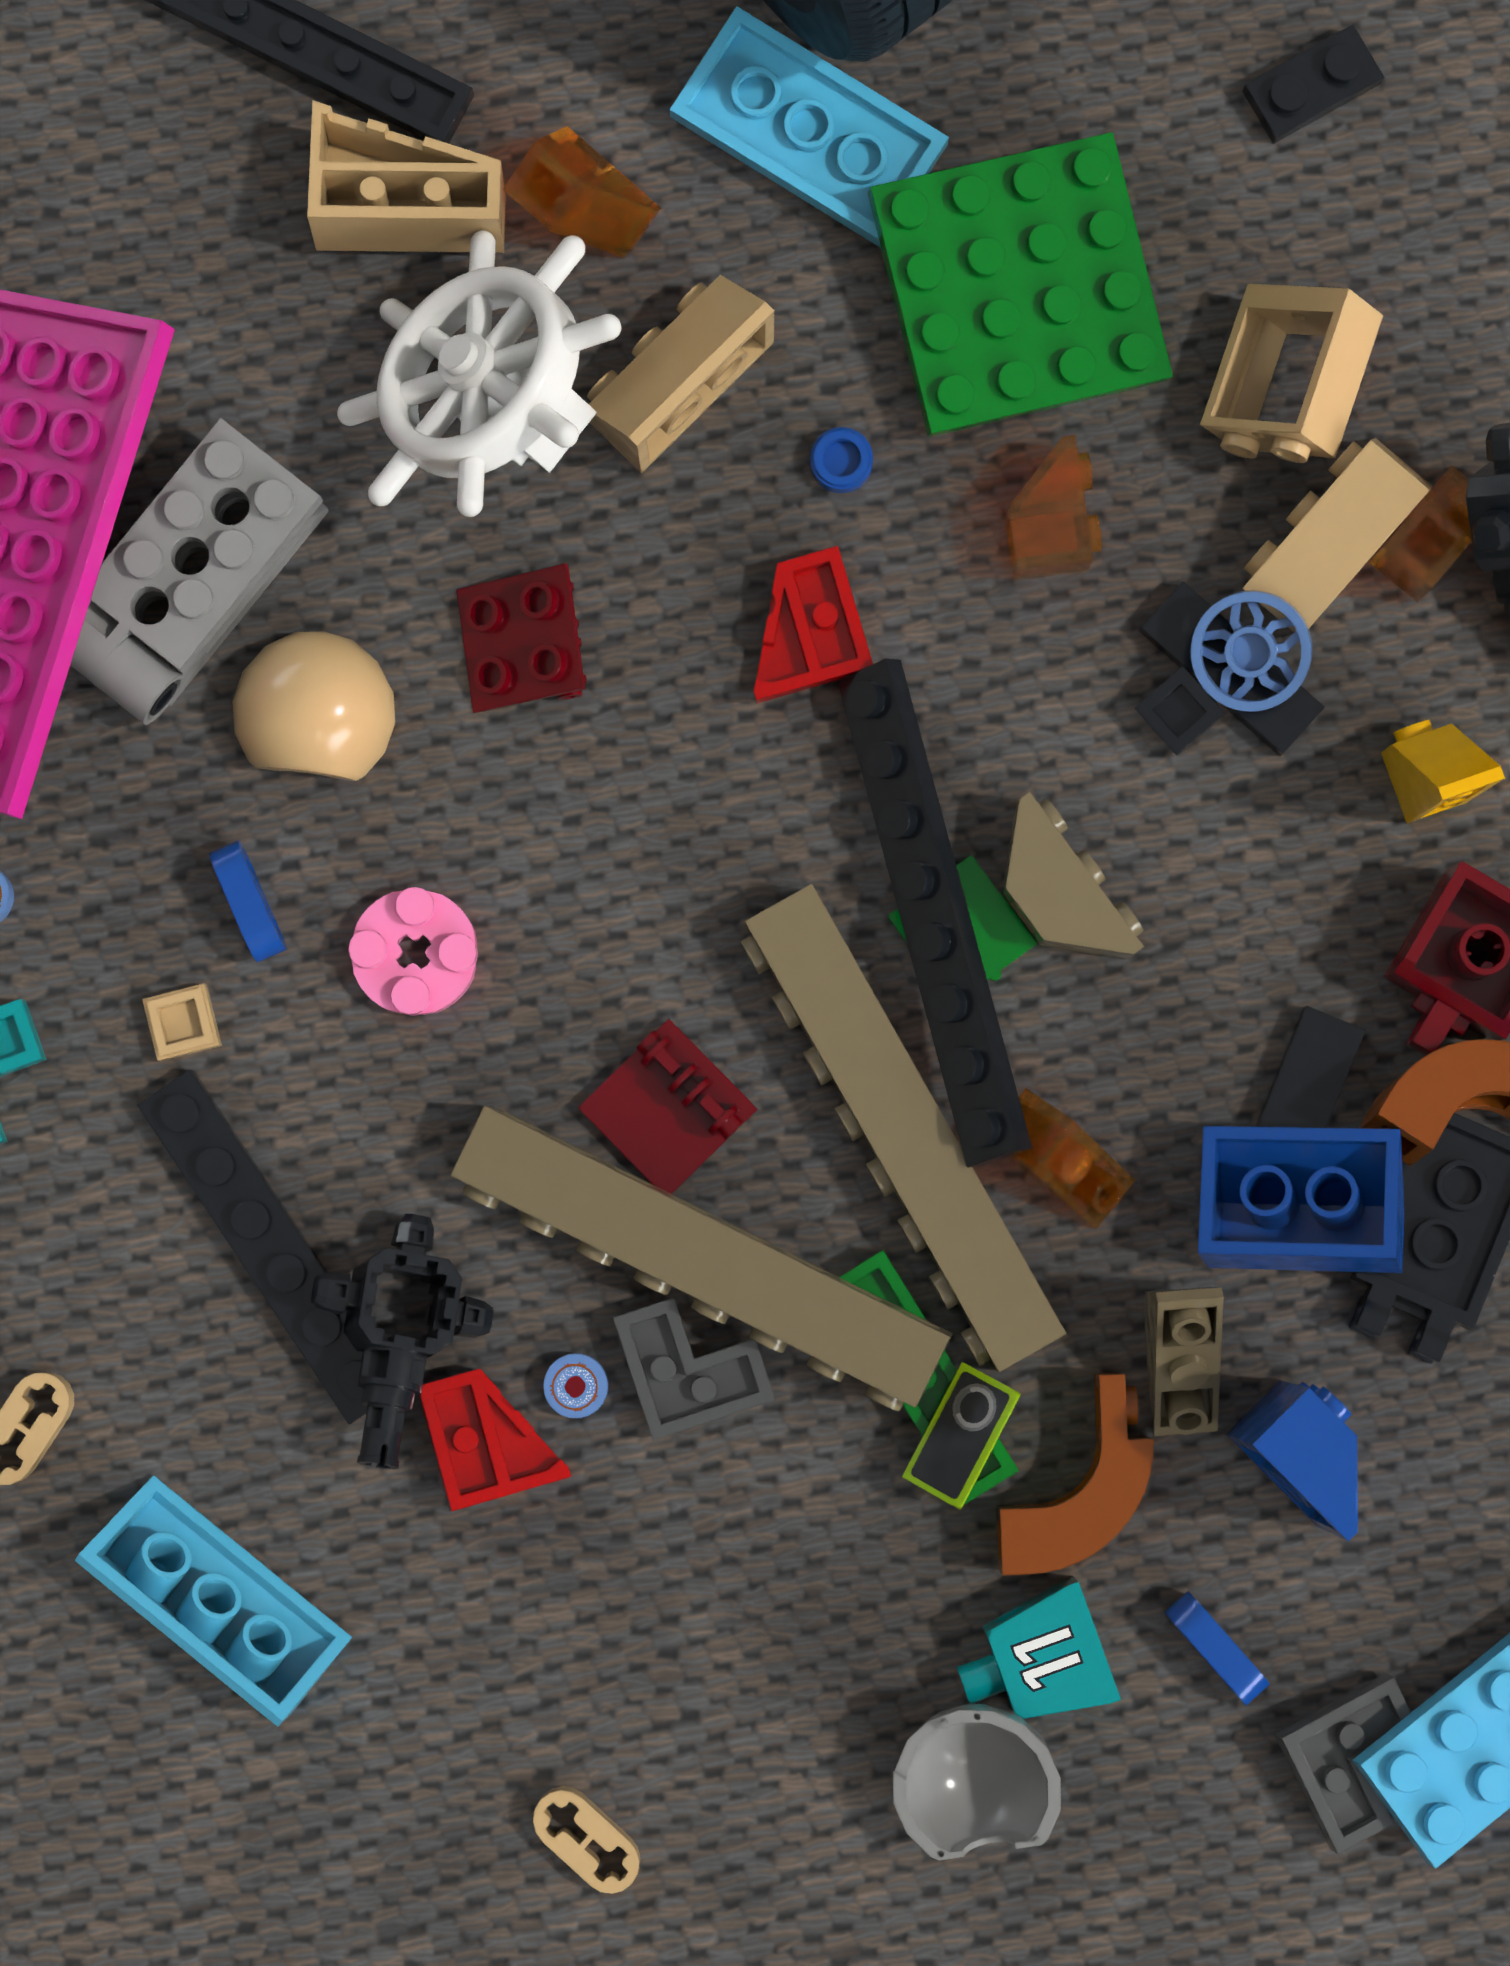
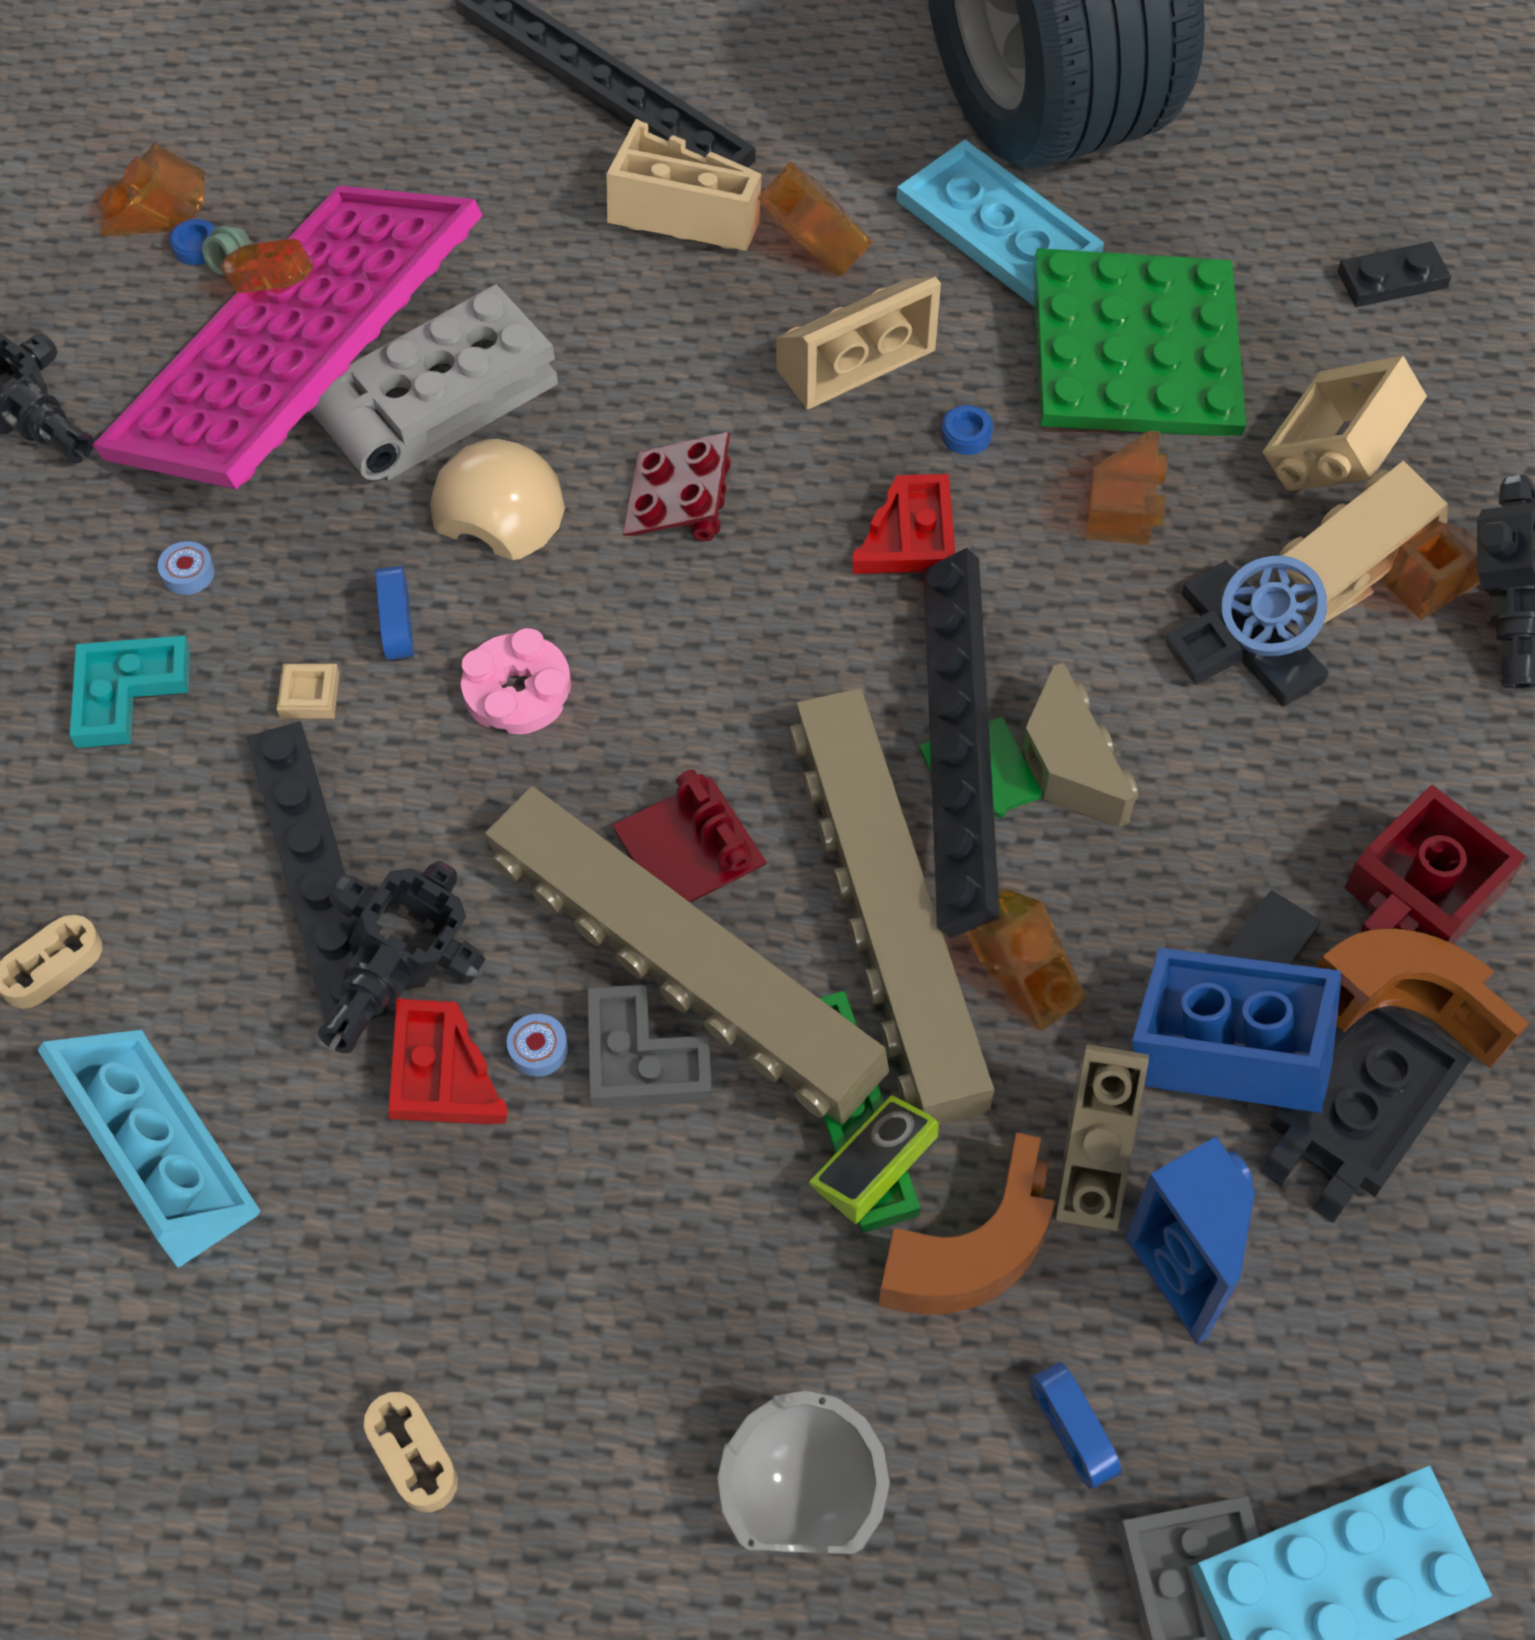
camera: 15 degrees right, 25 degrees down
(506, 394) = (707, 289): white piece -> none
(1043, 1656) = (906, 1385): teal torso -> none
(1437, 769) = (1422, 725): yellow slope -> none

